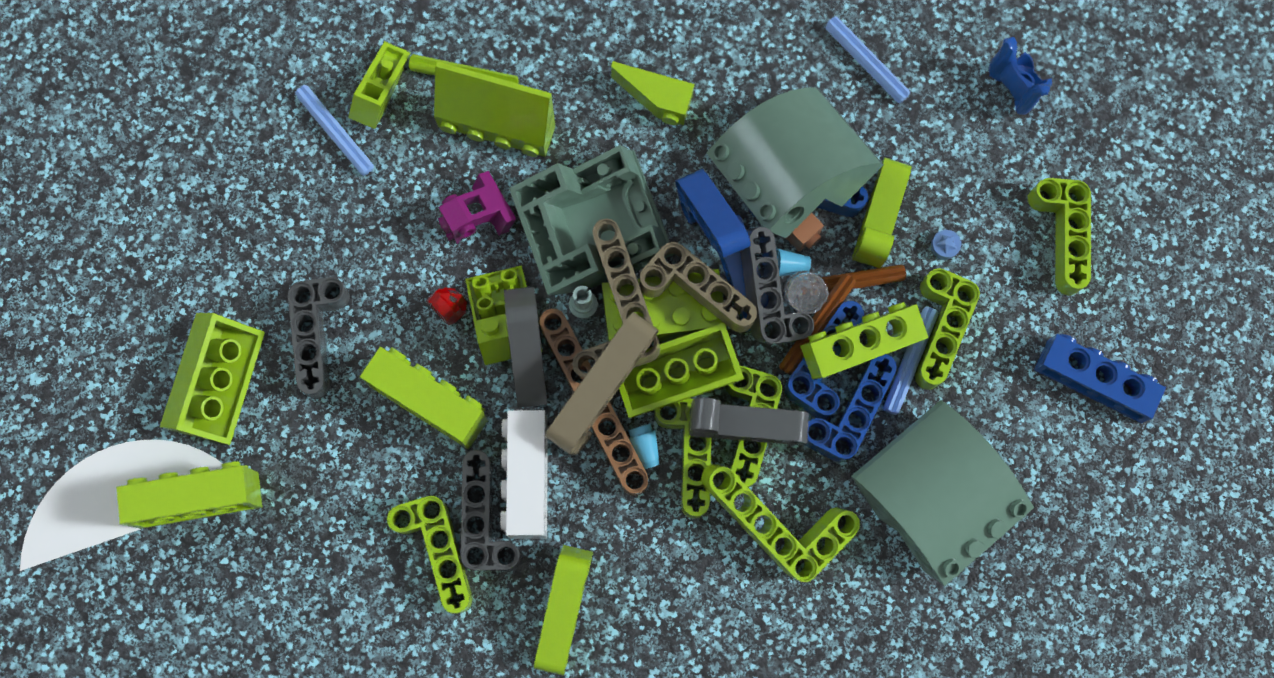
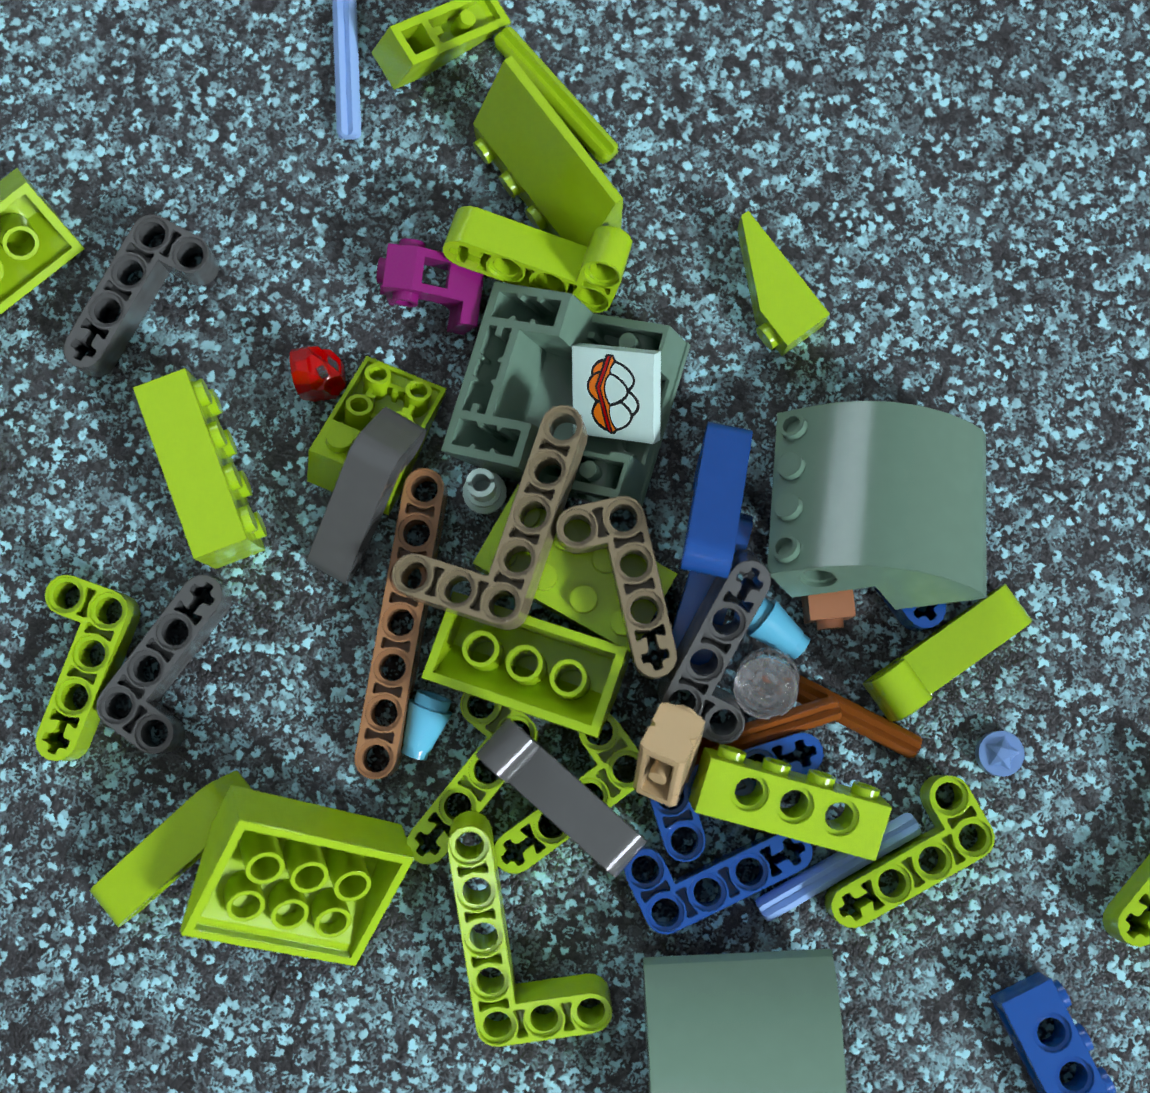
camera: 45 degrees right, 5 degrees up
(522, 160) = (537, 258): none -> lime beam
(526, 474) = (247, 656): white brick -> none
(573, 423) = (354, 633): dark tan beam -> none
(618, 197) = (617, 391): none -> light aqua tile
(642, 570) = (295, 877): none -> lime slope
(787, 358) = (668, 753): none -> tan brick
(867, 59) = (1084, 440): light blue axle -> none

